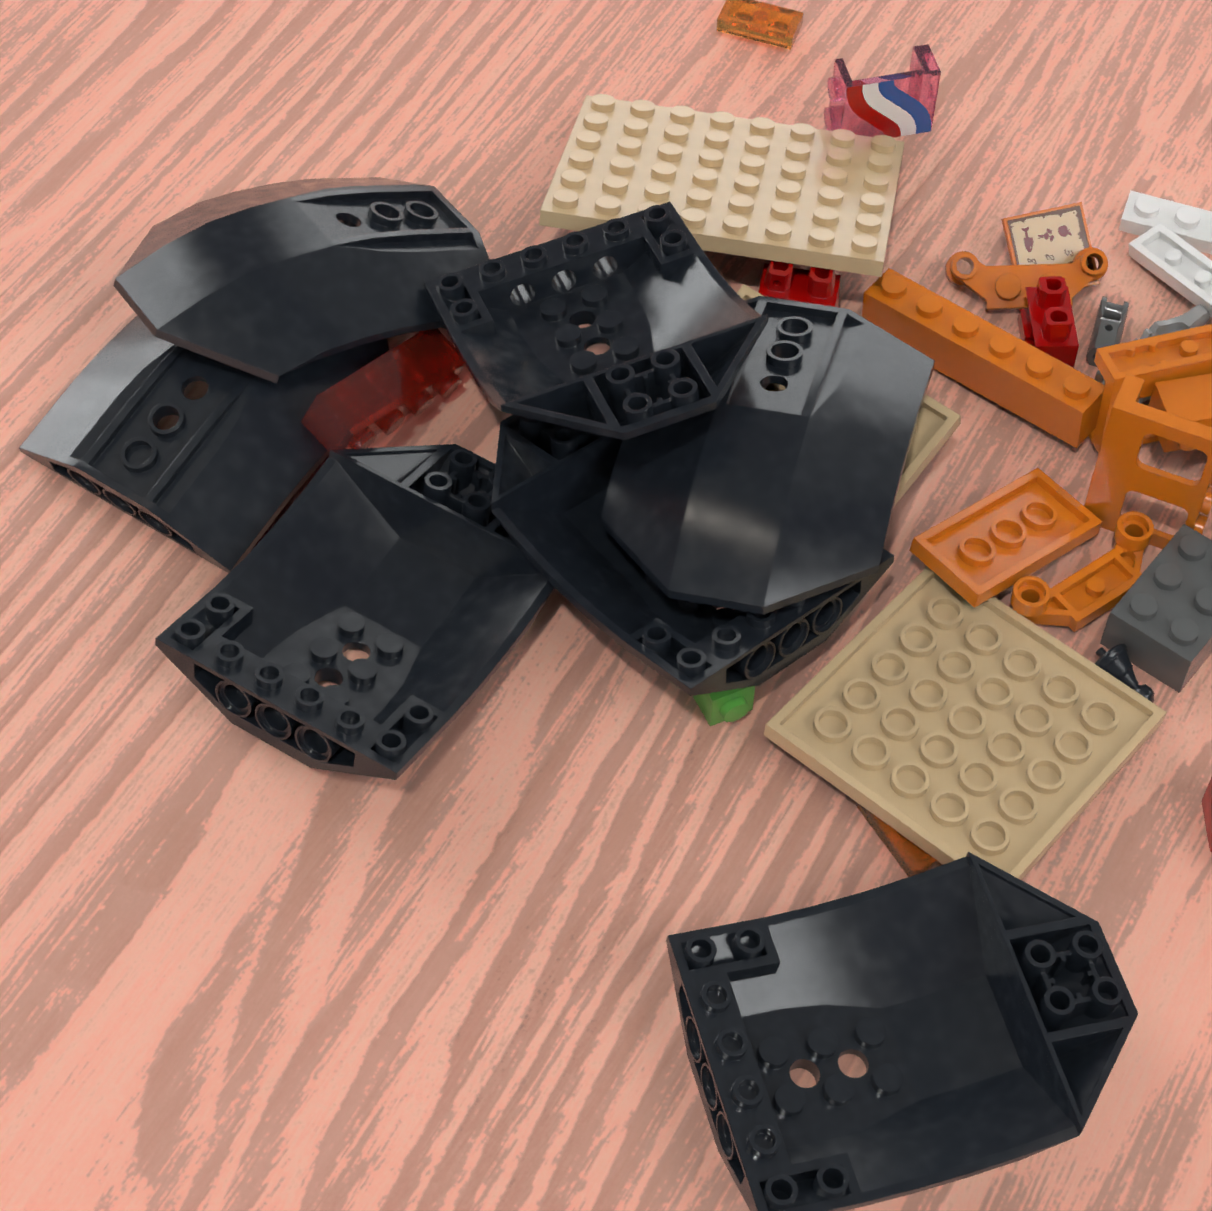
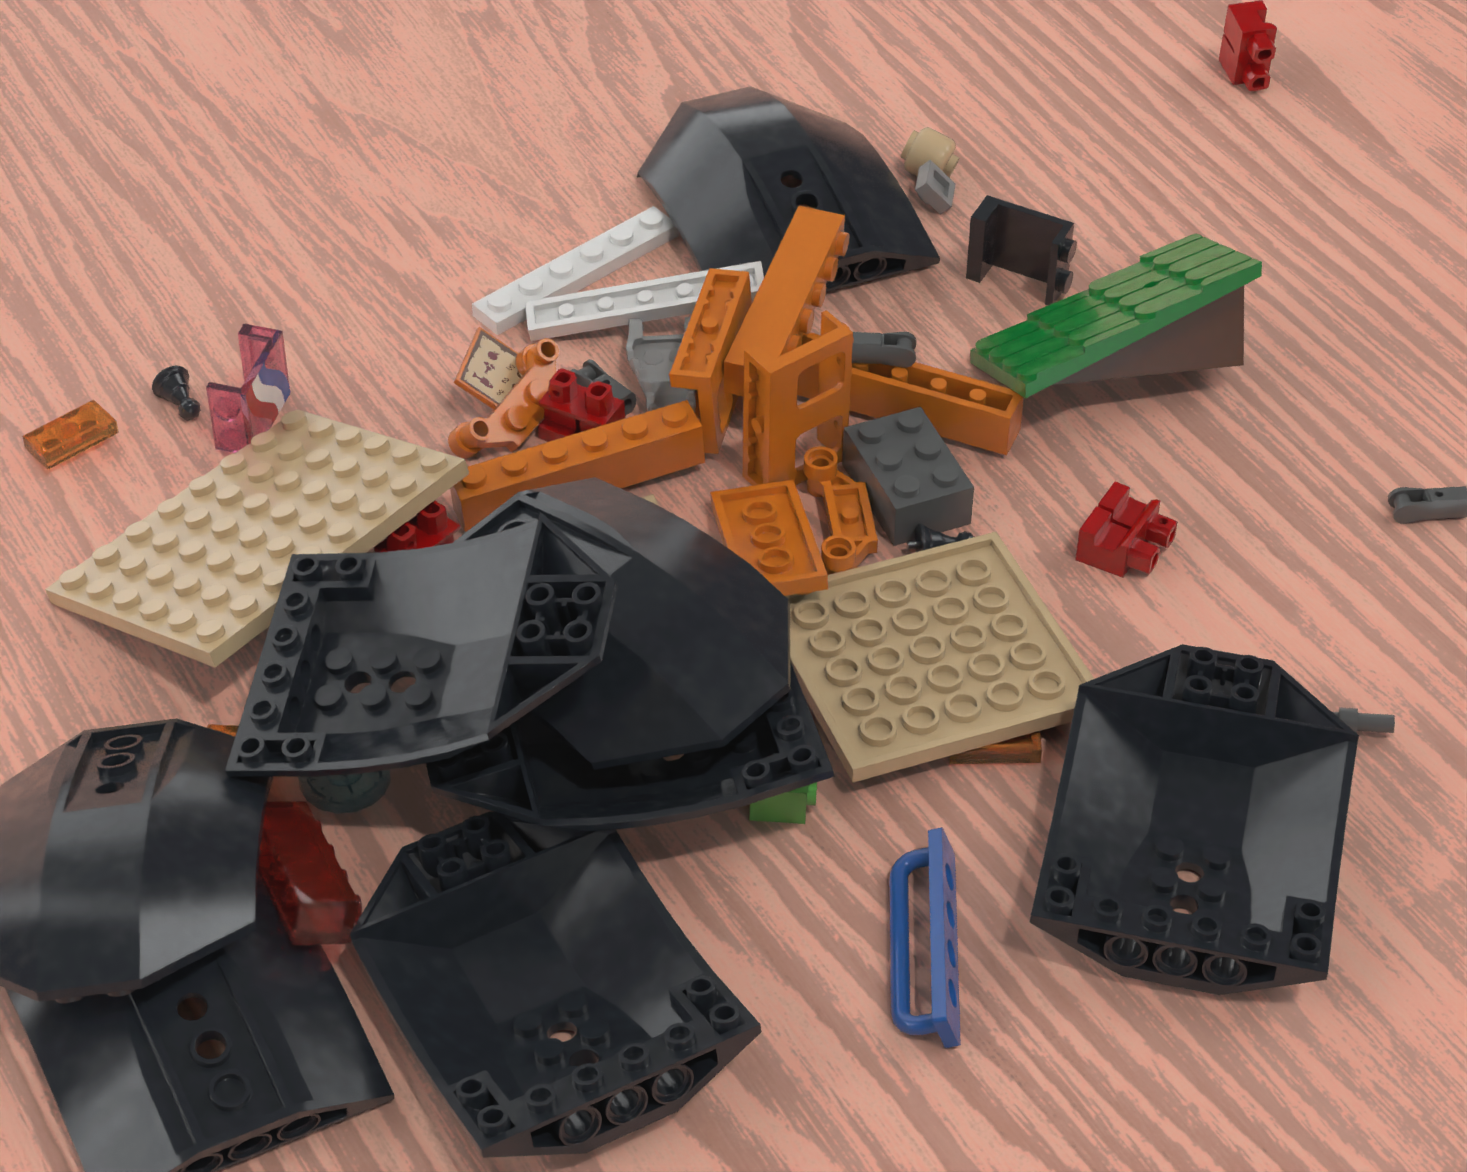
camera: 60 degrees left, 10 degrees down
(539, 922) = (943, 941): none -> blue piece
(866, 53) = (173, 386): none -> black piece
(1157, 1133) = (1366, 721): none -> dark grey bar

